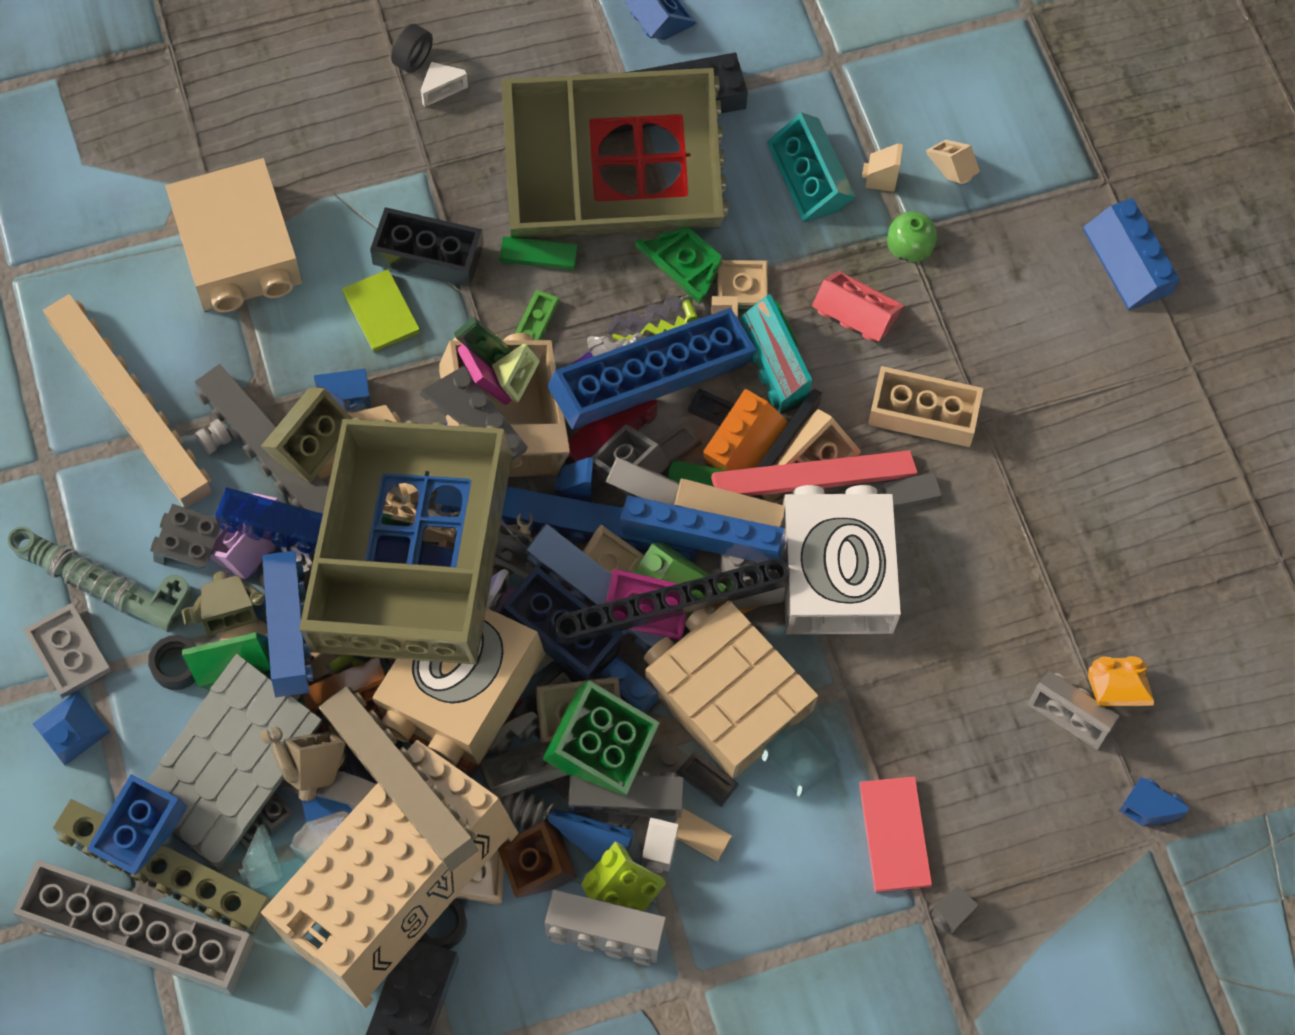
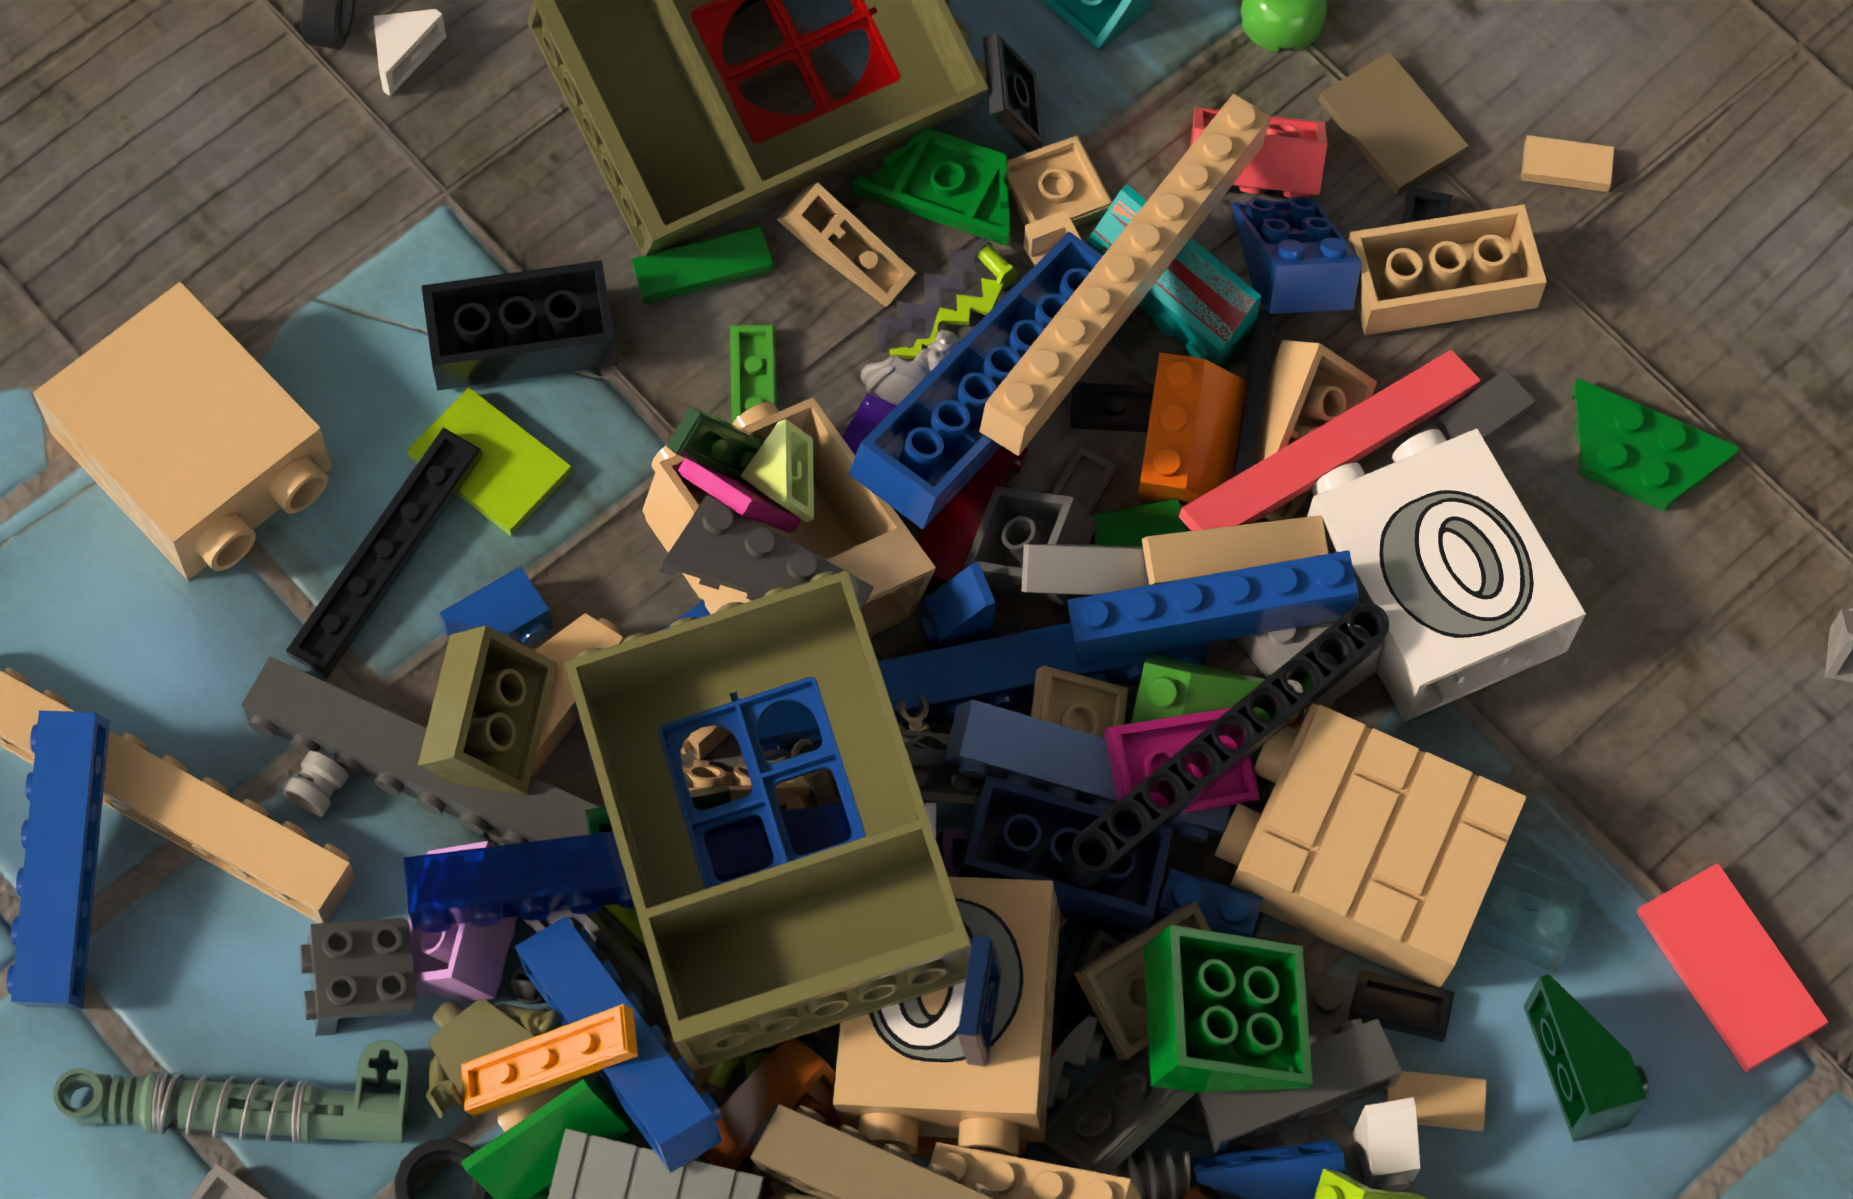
camera: 25 degrees left, 0 degrees up
(68, 422) = (59, 860): none -> blue brick
(246, 616) = (549, 1059): none -> light orange tile
(305, 335) = (384, 553): none -> black tile
(463, 674) = (979, 1001): none -> dark blue tile
(616, 271) = (845, 243): none -> tan slope
(740, 225) = (1012, 93): none -> black tile
(740, 339) = (1124, 275): none -> tan brick
(785, 859) = (1586, 1064): none -> dark green slope
(849, 368) = (1296, 256): none -> blue slope
(934, 369) = (1425, 205): none -> black plate
(941, 319) = (1393, 123): none -> dark tan tile
(988, 544) = (1641, 448): none -> green wing
(1025, 377) = (1567, 163): none -> tan tile

